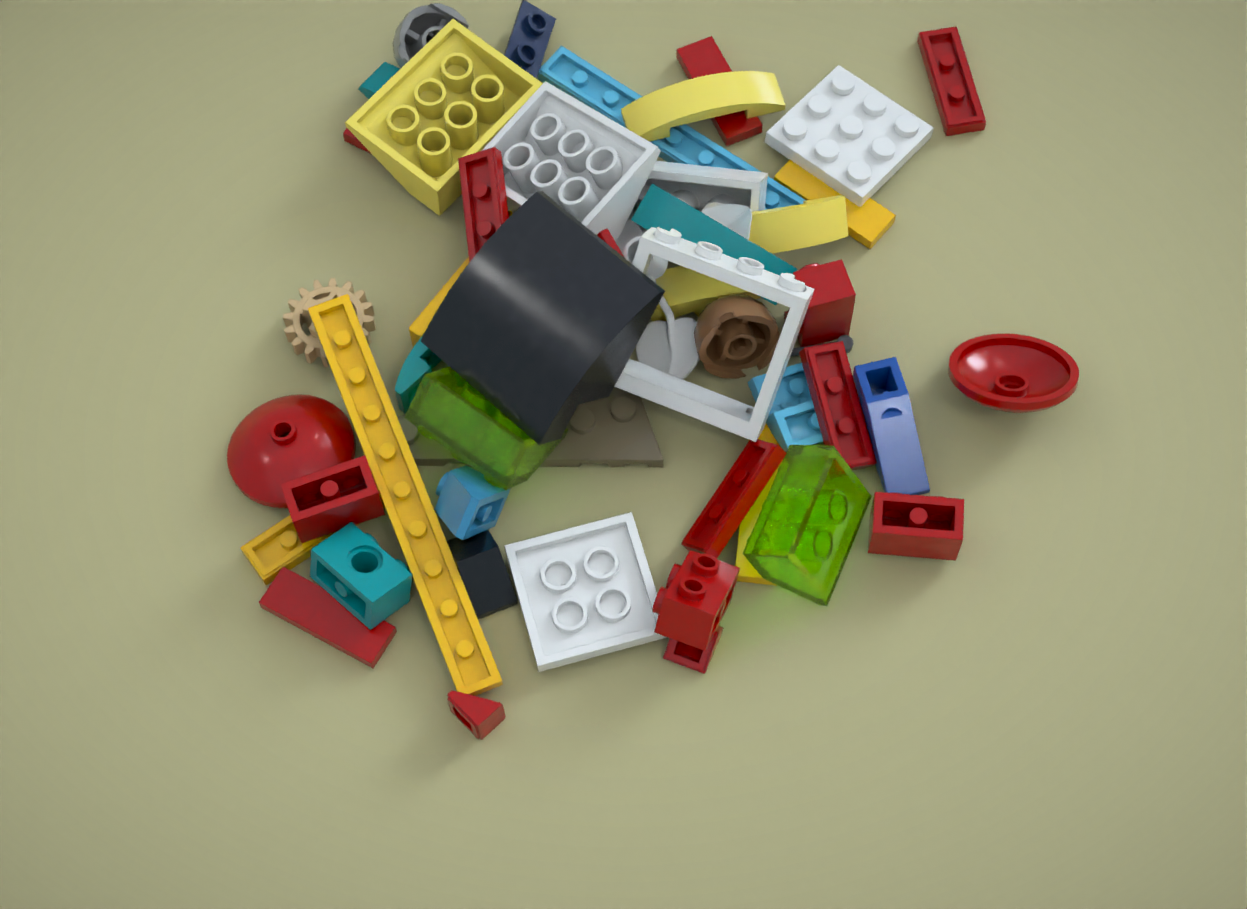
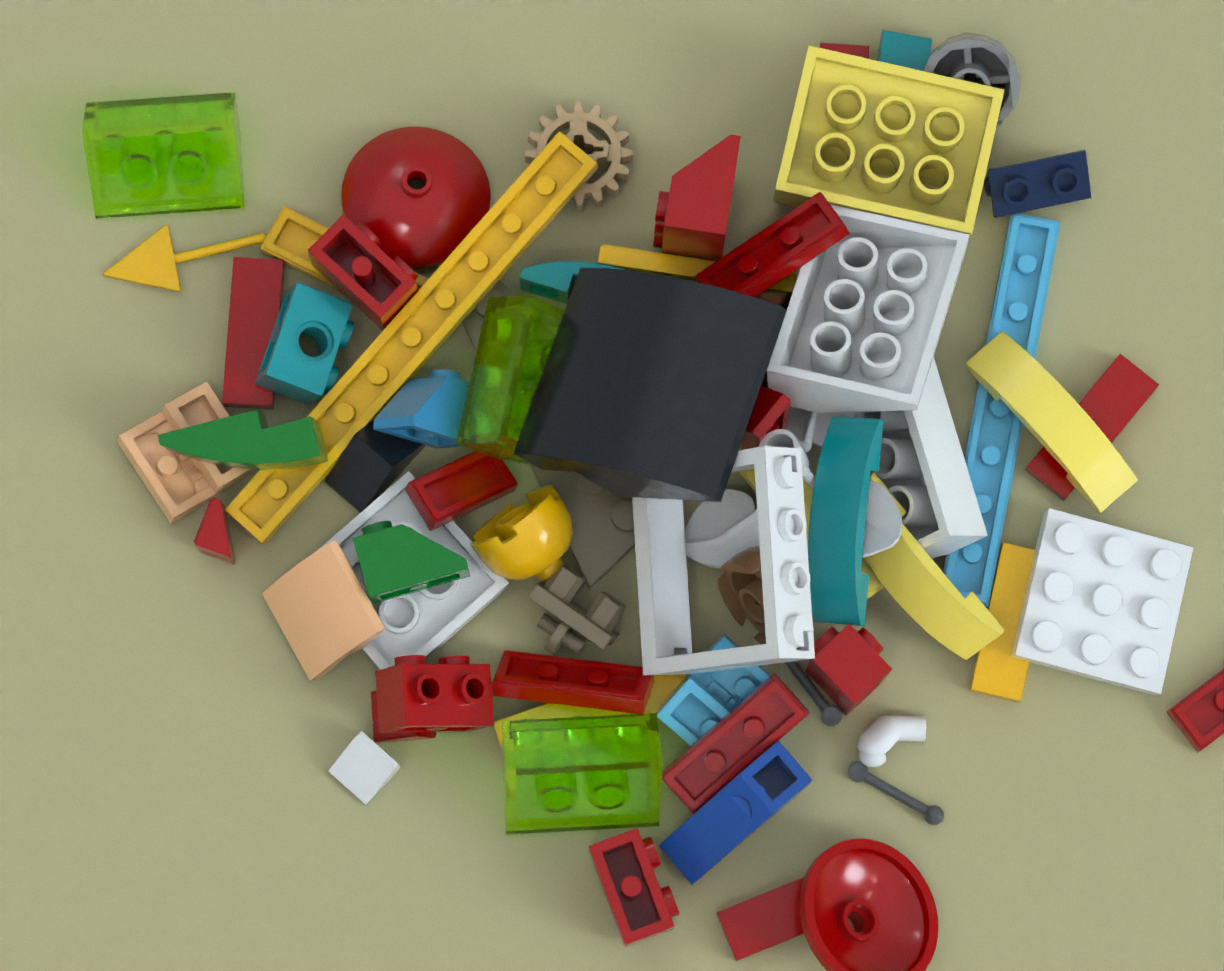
camera: 60 degrees right, 15 degrees up
(145, 616) = (164, 155): none -> clear neon green slope
(228, 668) = (155, 262): none -> yellow piece
(395, 710) = (174, 479): none -> light nougat slope
(419, 644) = (249, 442): none -> green slope
(428, 236) = (696, 209): none -> red slope
(538, 514) = (460, 488): none -> red tile
(576, 572) = (404, 561): none -> green slope
(583, 654) = (323, 610): none -> light nougat slope
(603, 480) = (527, 537): none -> yellow cylinder
(661, 482) = (558, 597): none -> dark tan hips
(722, 686) = (364, 768): none -> white slope
(876, 311) = (885, 733): none -> white arm
(896, 344) = (859, 772): none -> dark grey hinge
(980, 447) = (763, 920): none -> red tile

